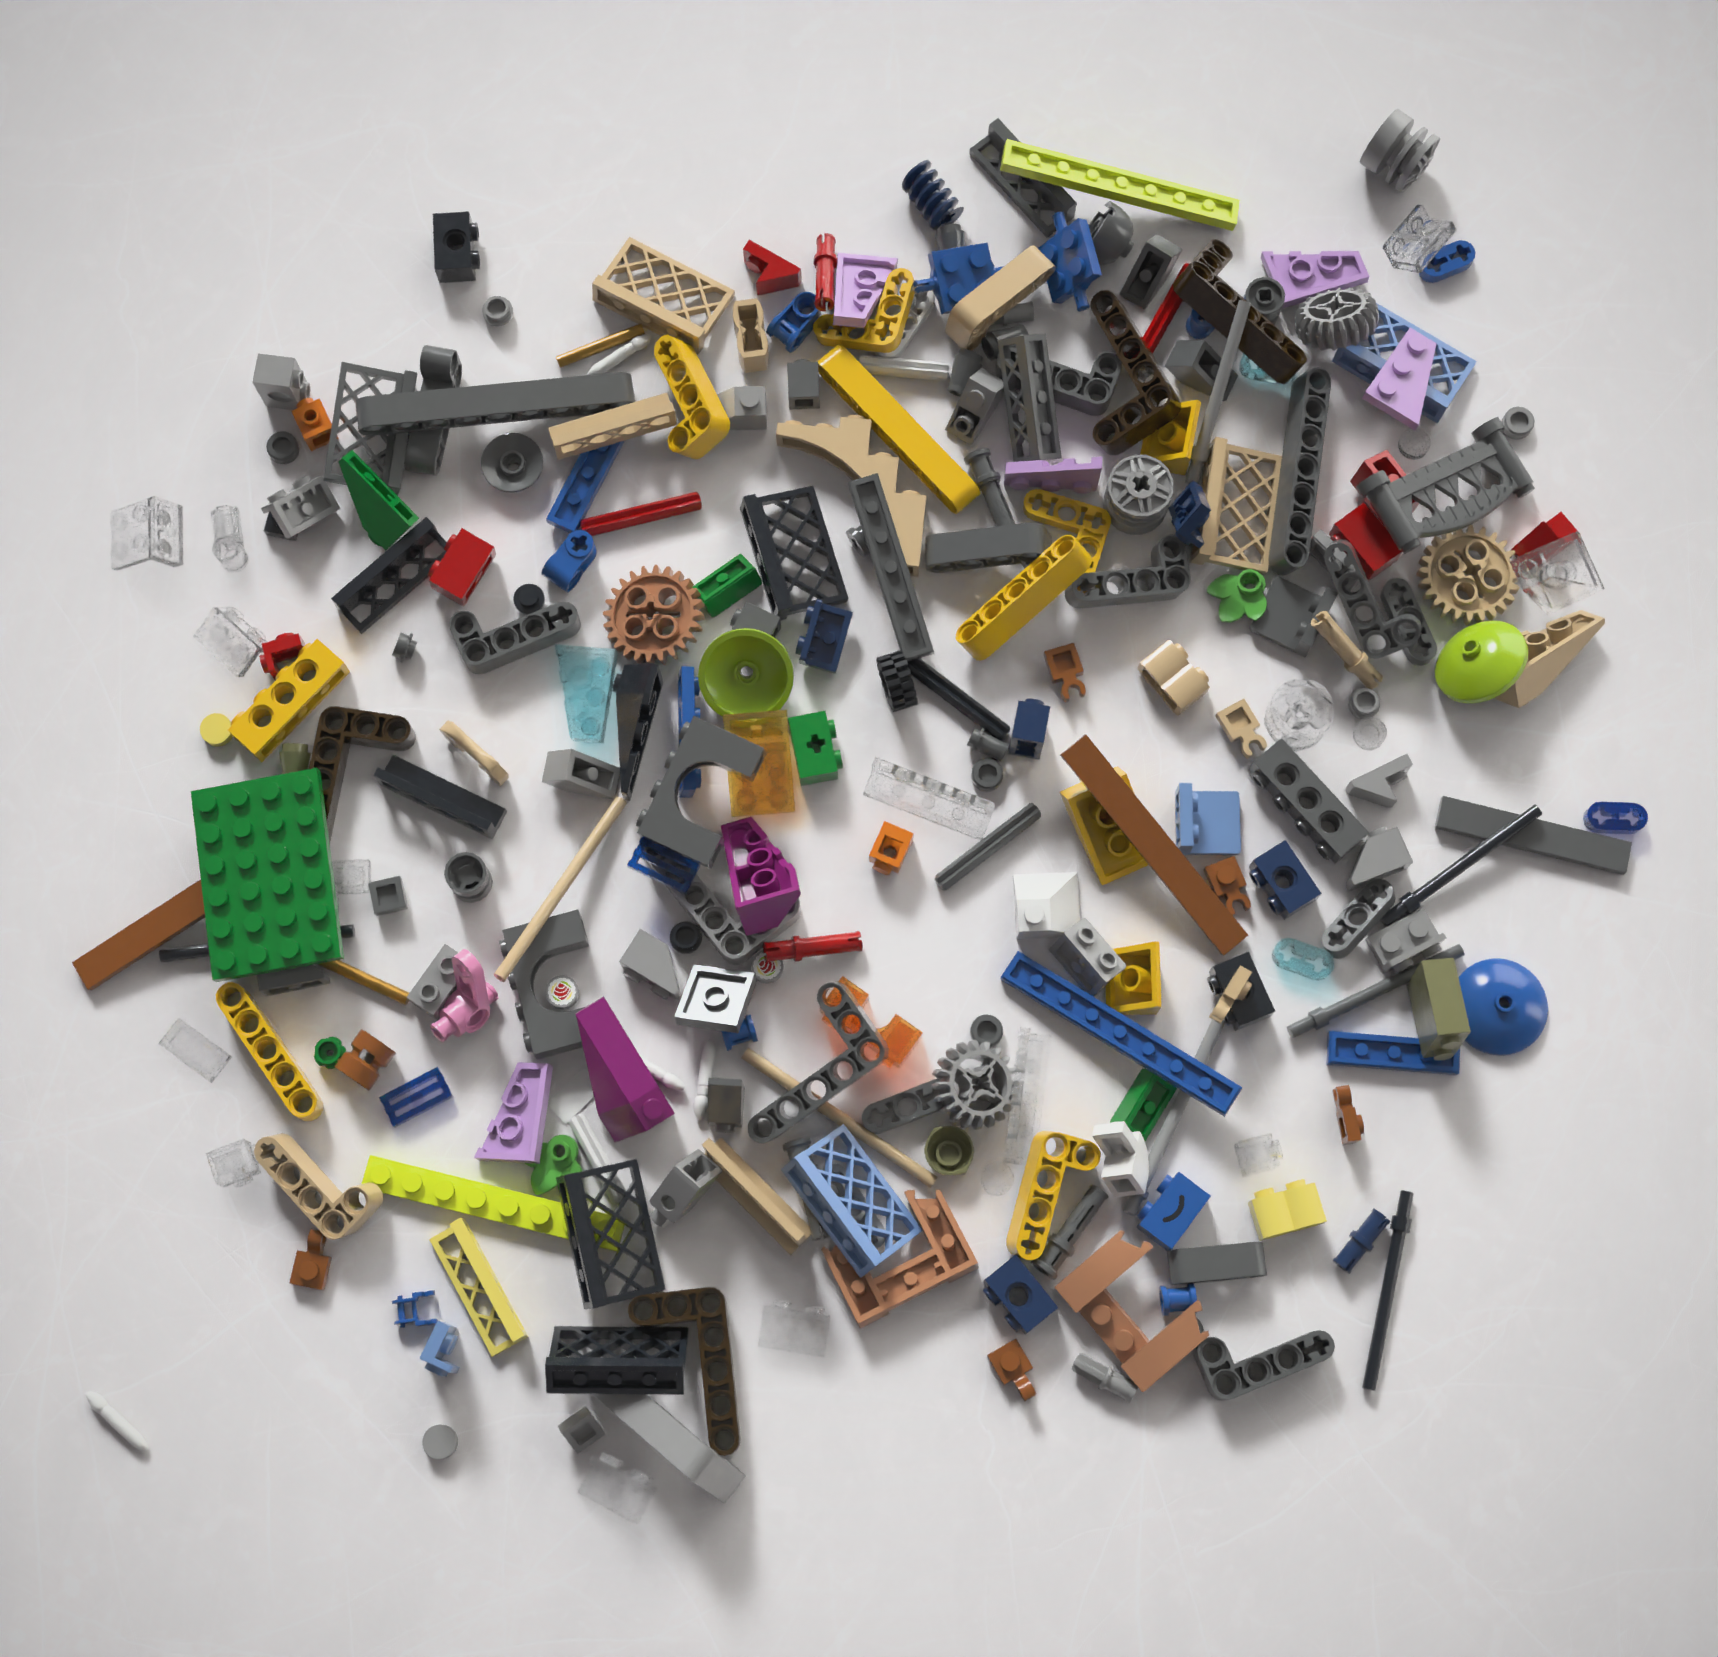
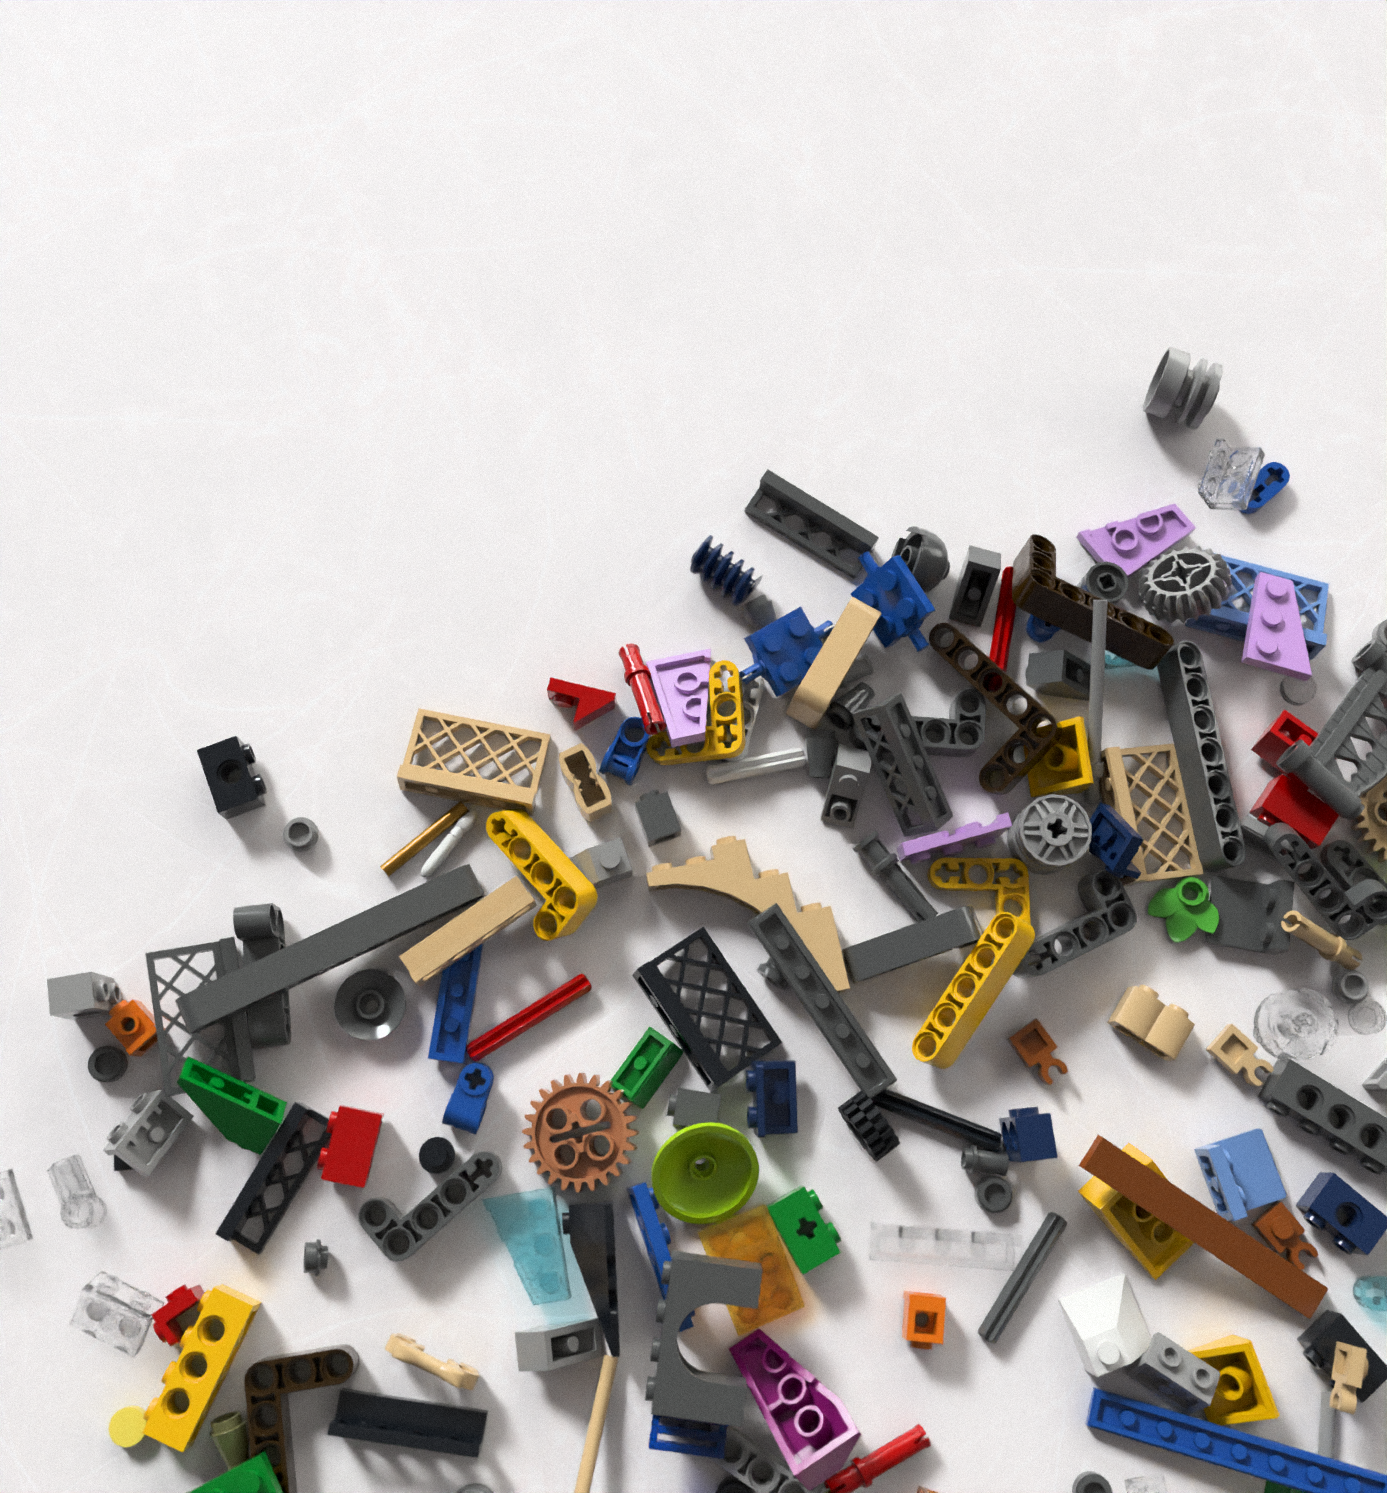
camera: 25 degrees left, 0 degrees up
(898, 429) = (773, 837): yellow beam -> none
(1119, 185) = (914, 505): neon yellow plate -> none

